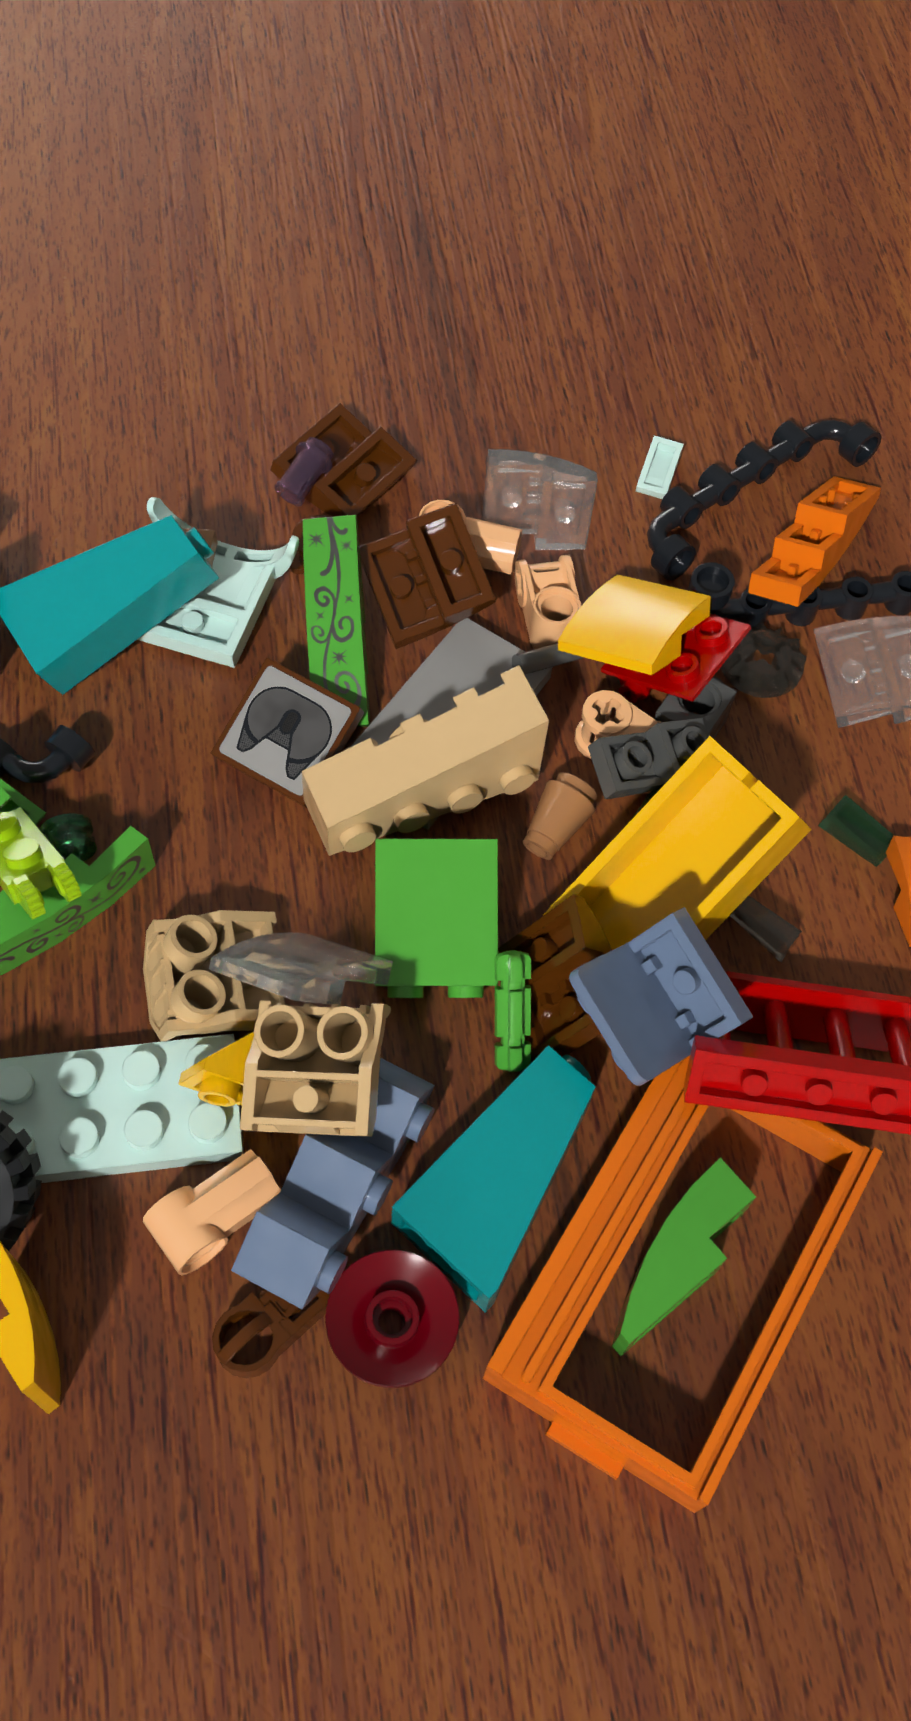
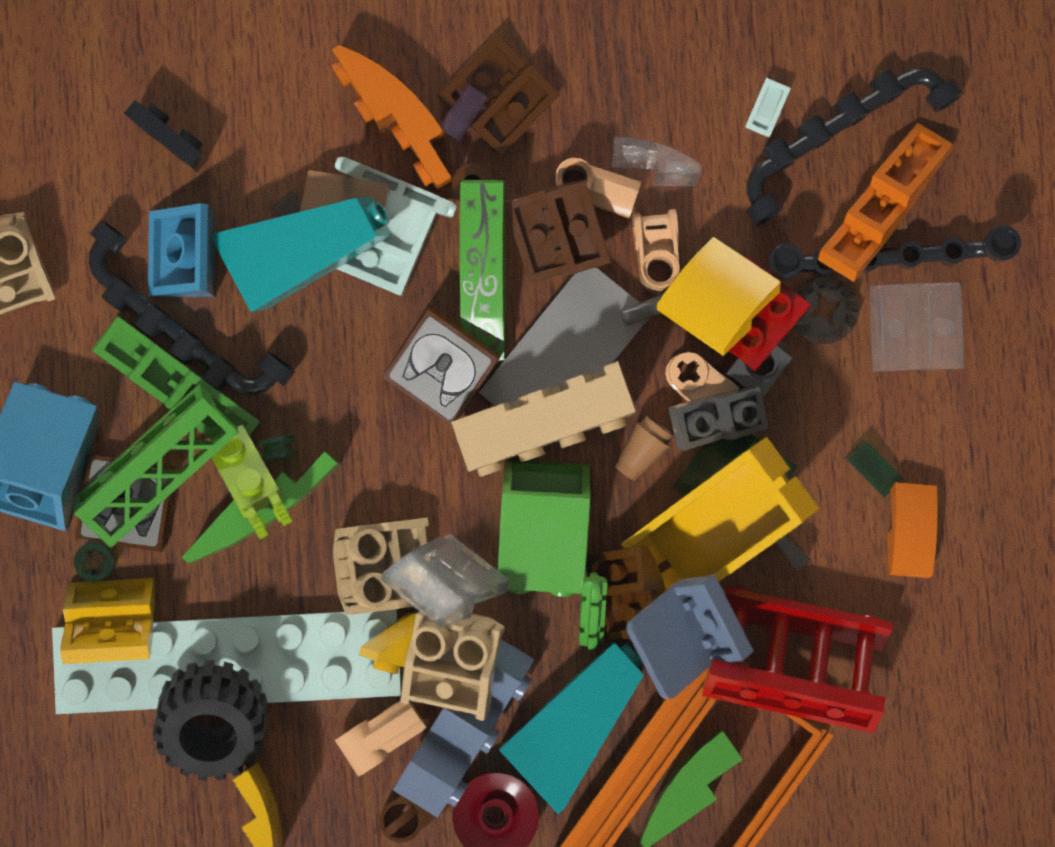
camera: 10 degrees right, 25 degrees up
(221, 472) = (389, 100): none -> orange slope

